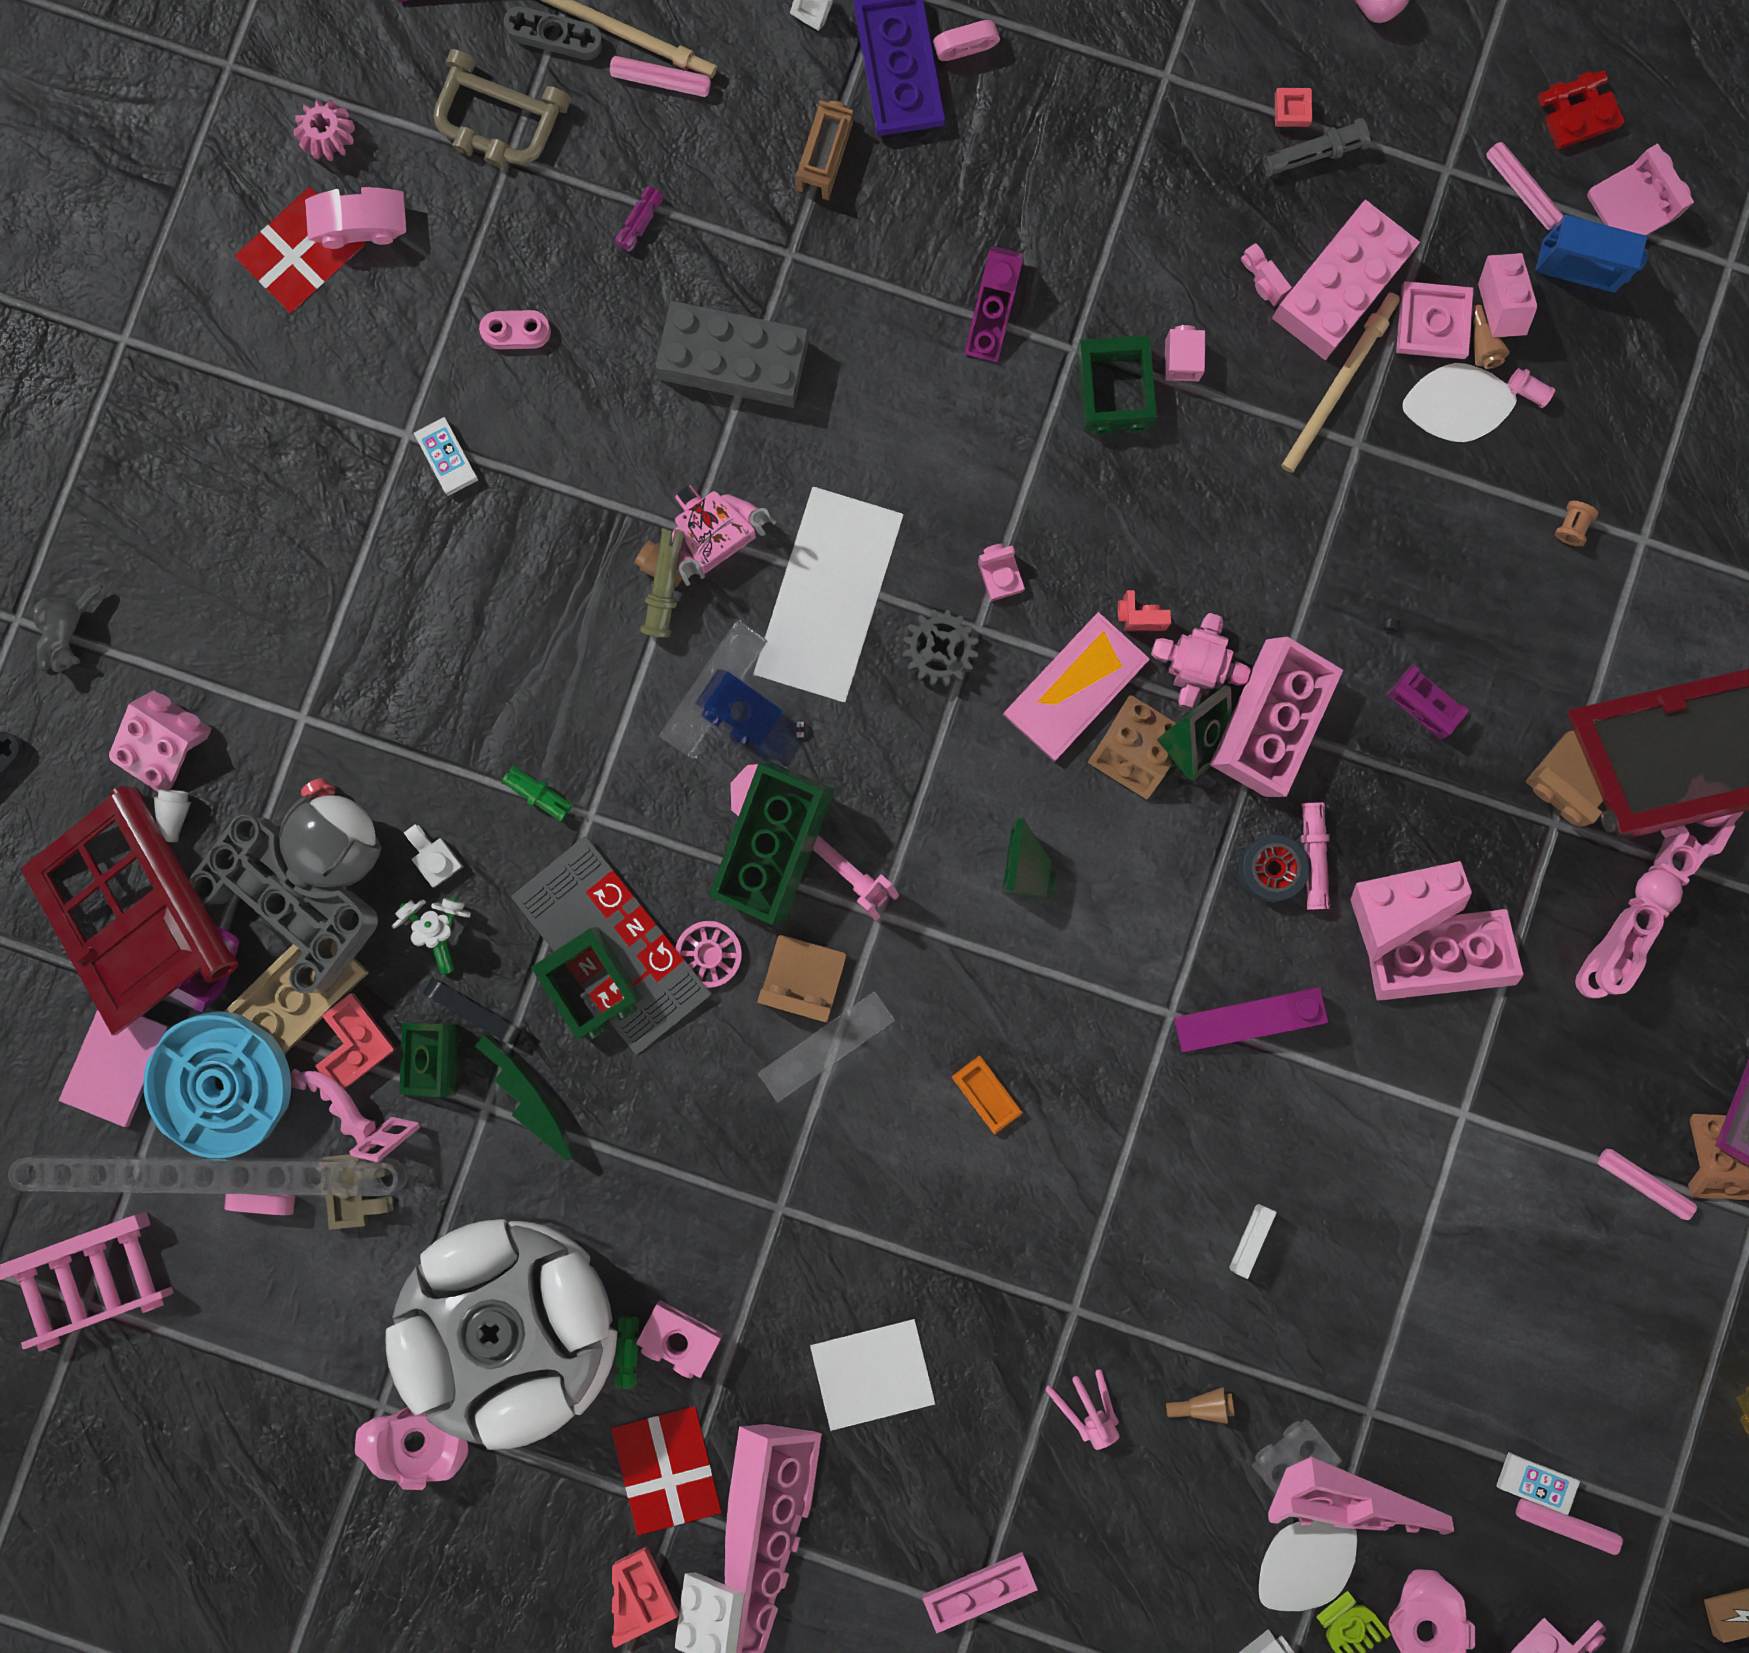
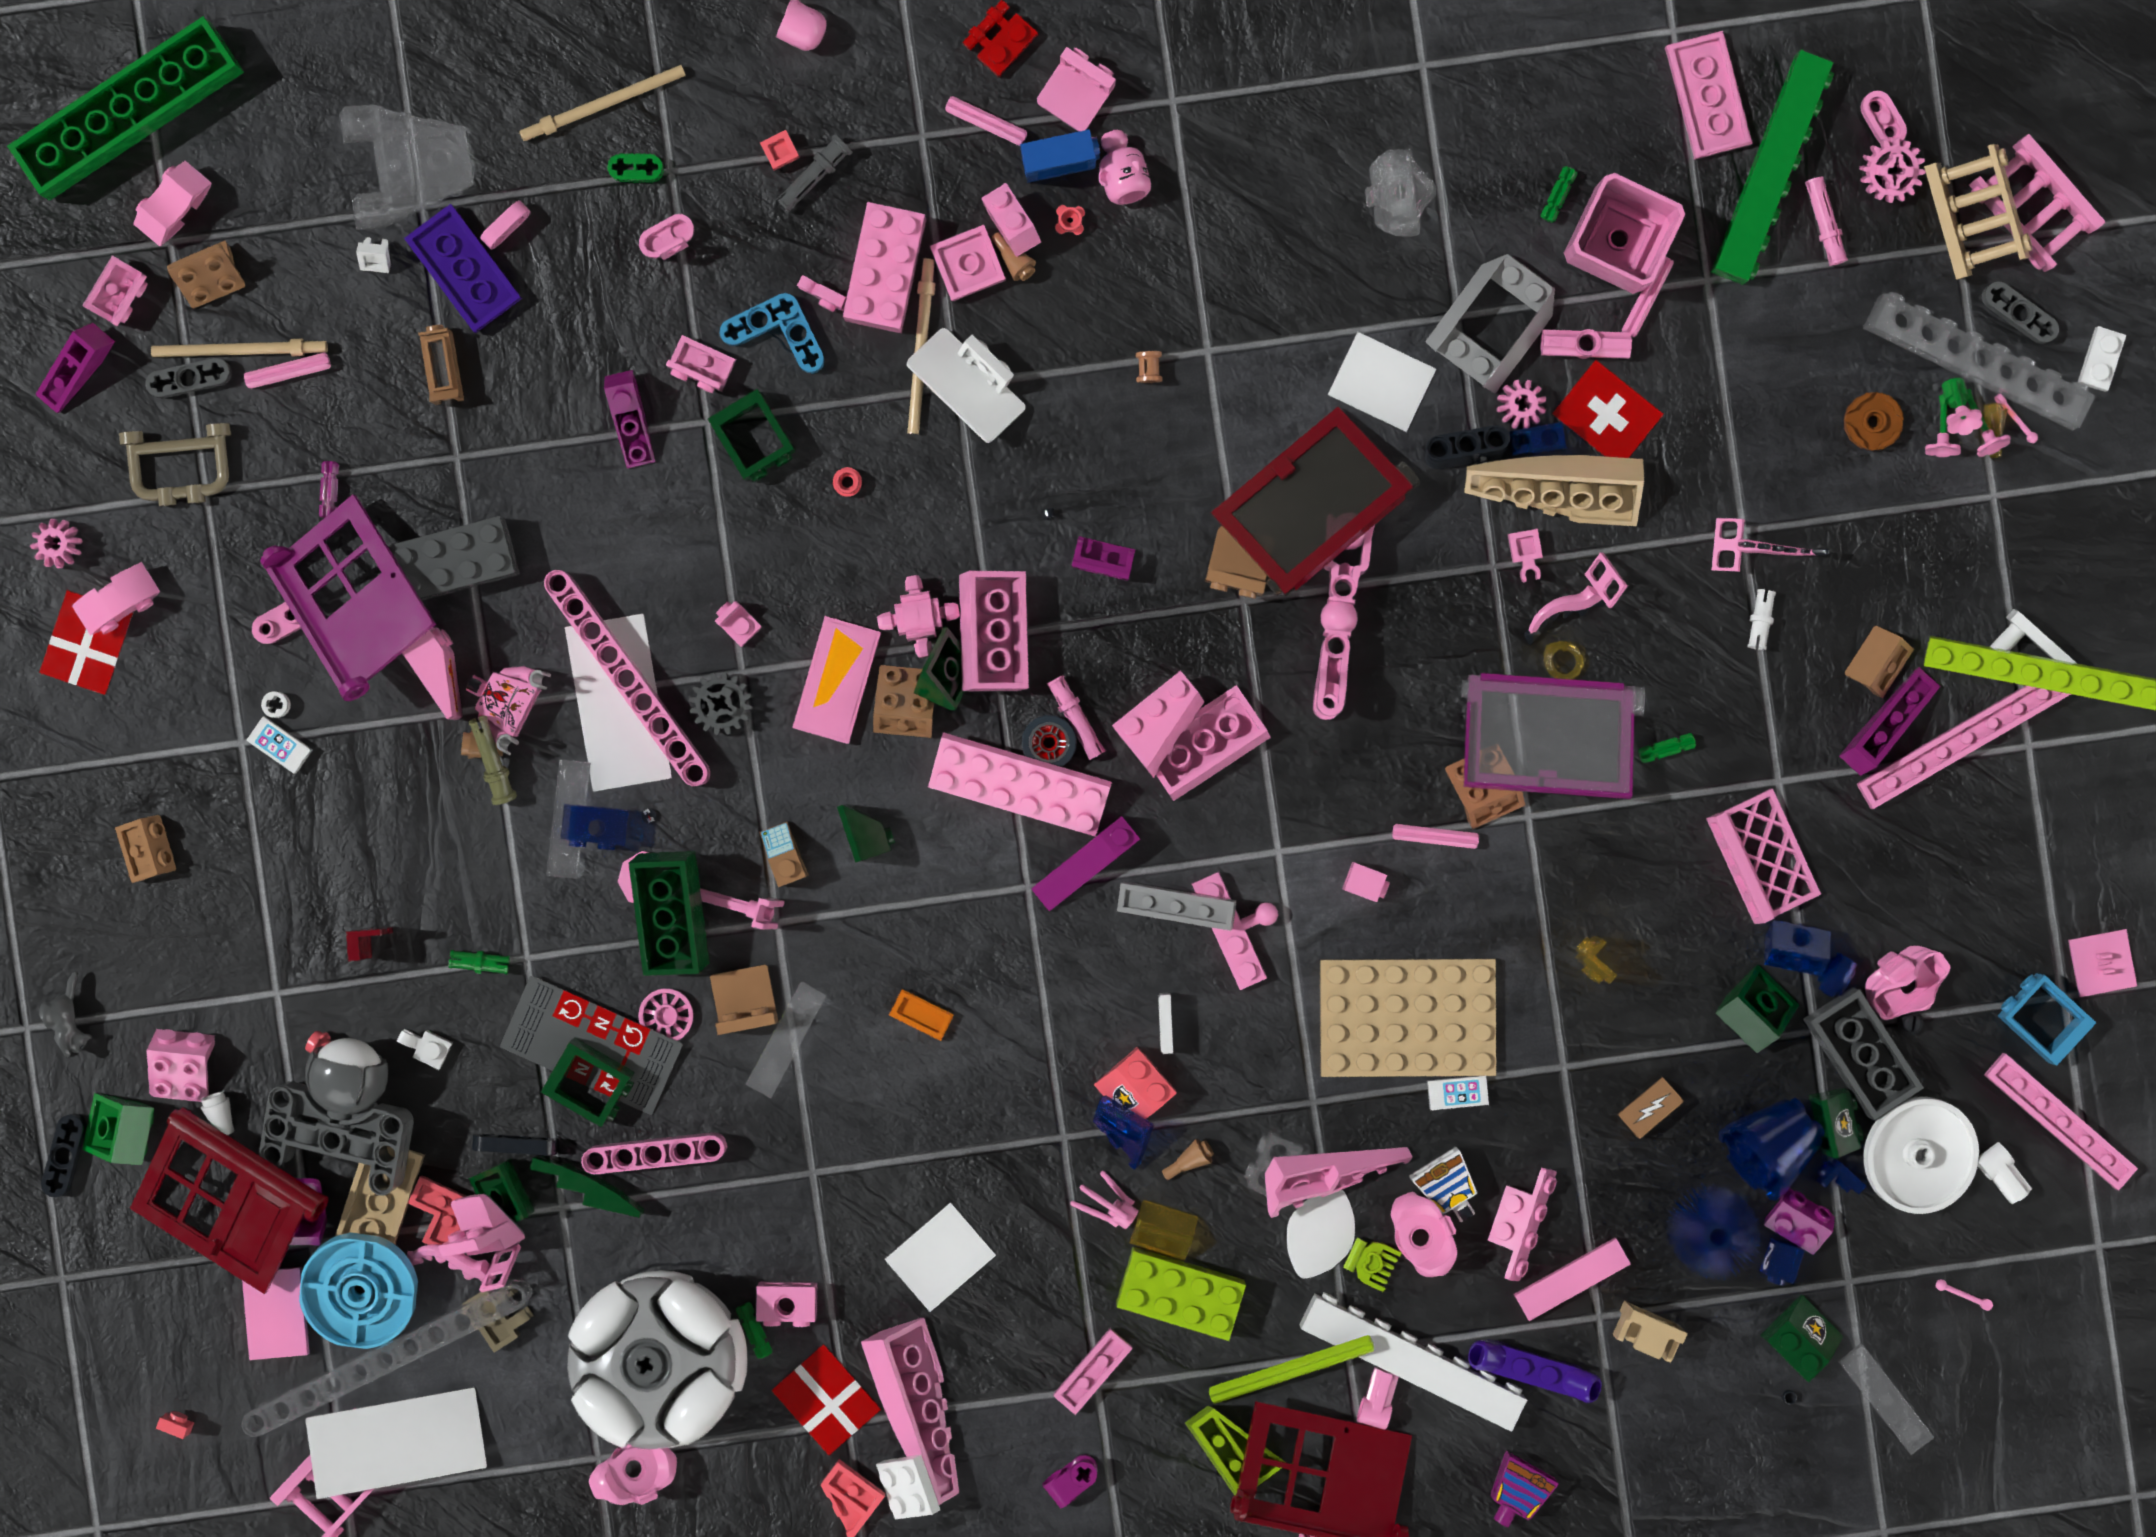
camera: 20 degrees left, 5 degrees up
(54, 776) = (118, 1129): none -> green slope
(166, 1276) = (395, 1443): none -> white sticker
(246, 492) = (145, 848): none -> medium nougat bracket
(260, 1203) = (436, 1358): bright pink beam -> none
(389, 1085) = (482, 1227): none -> bright pink piece
(420, 704) = (360, 942): none -> dark red panel
(432, 929) = (455, 1100): white plant -> none
(464, 401) = (279, 712): none -> white bush
(601, 1100) = (642, 1160): none -> bright pink beam
(610, 372) = (372, 624): none -> magenta door
(657, 448) = (436, 668): none -> bright pink slope
(853, 554) = (614, 671): none -> bright pink beam
(925, 844) = (783, 854): none -> slope
(1099, 284) = (701, 364): none -> bright pink bracket
(1122, 1555) = (1181, 1293): none -> lime brick
(1129, 137) = (667, 237): none -> bright pink bracket
(1131, 52) = (636, 161): none -> green beam
(1137, 1473) = (1164, 1230): none -> clear yellow panel
(1146, 619) = (863, 602): coral bracket -> none
(1149, 1335) = (1123, 1129): none -> clear blue wing
(1184, 354) = (791, 386): bright pink brick -> none
(1184, 1296) = (1136, 1084): none -> coral slope
(1196, 474) = (843, 473): none -> coral plate
(1208, 283) = (786, 323): none -> dark azure beam
(1221, 897) = (1019, 784): none -> bright pink plate
(1329, 1117) = (1176, 905): none -> light grey plate
(1373, 1173) = (1236, 943): none -> bright pink plate
(1378, 441) = (968, 382): none -> white bracket
(1459, 402) = (1018, 314): white sticker -> none
(1483, 1579) = (1447, 1184): none -> torso
(1521, 1371) = (1407, 1017): none -> tan plate
(1530, 387) = (1065, 278): bright pink pin -> none
(1548, 1196) = (1366, 882): none -> bright pink brick
(1569, 1526) = (1494, 1111): bright pink axle -> none
(1570, 323) = (1070, 212): none -> coral plate
(1650, 305) = (1123, 170): none -> bright pink piece

